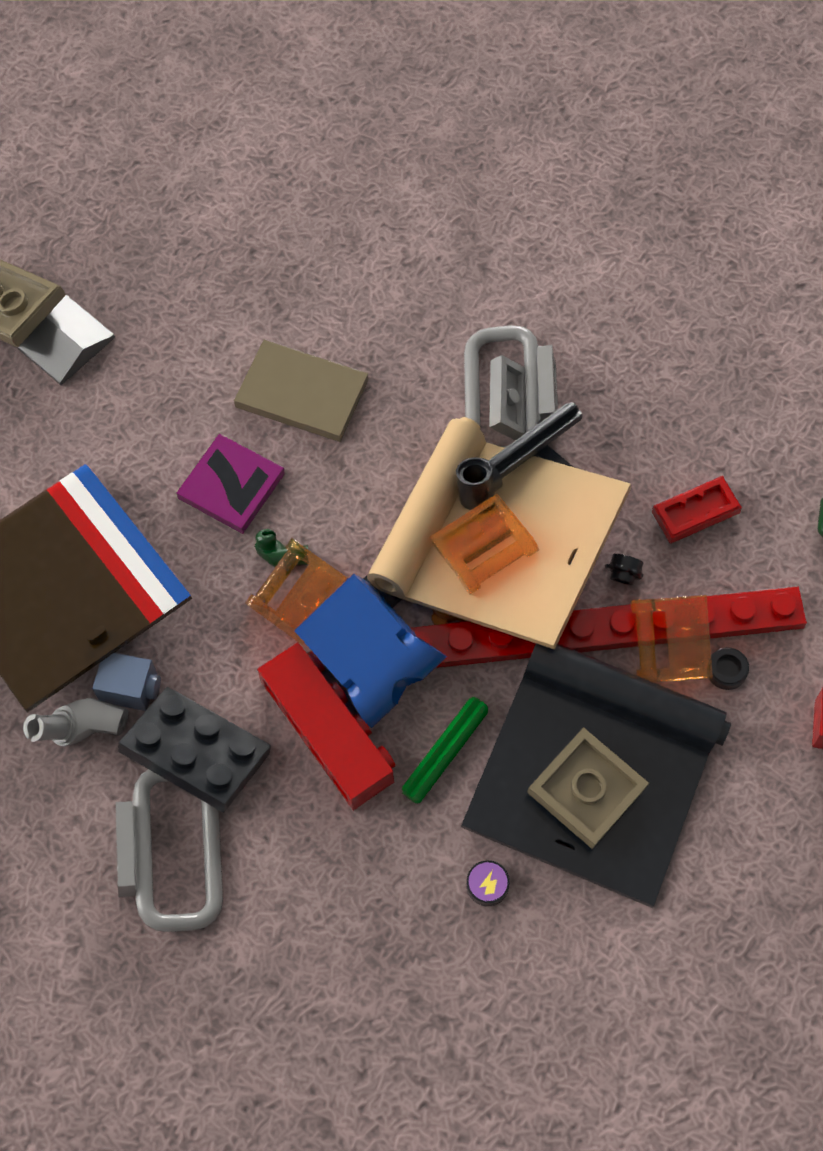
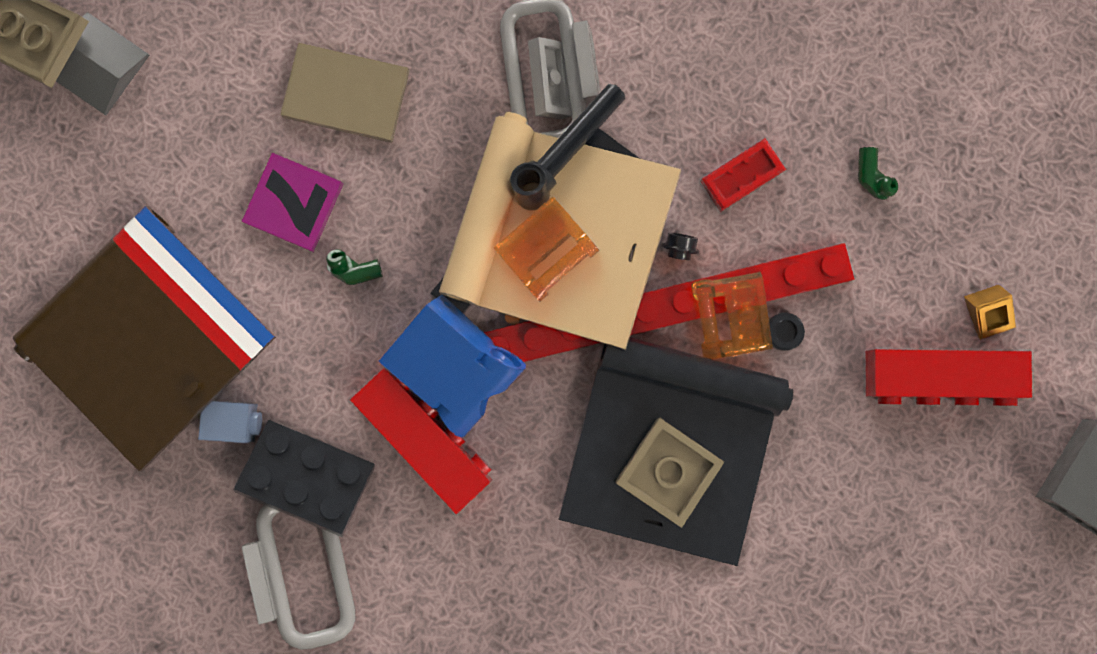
camera: 10 degrees left, 20 degrees up
(76, 722) = (189, 467): light grey arm -> none
(307, 594) = (387, 314): clear orange plate -> none
(444, 750) = (534, 445): green axle -> none
(487, 883) = (588, 564): medium lavender tile -> none

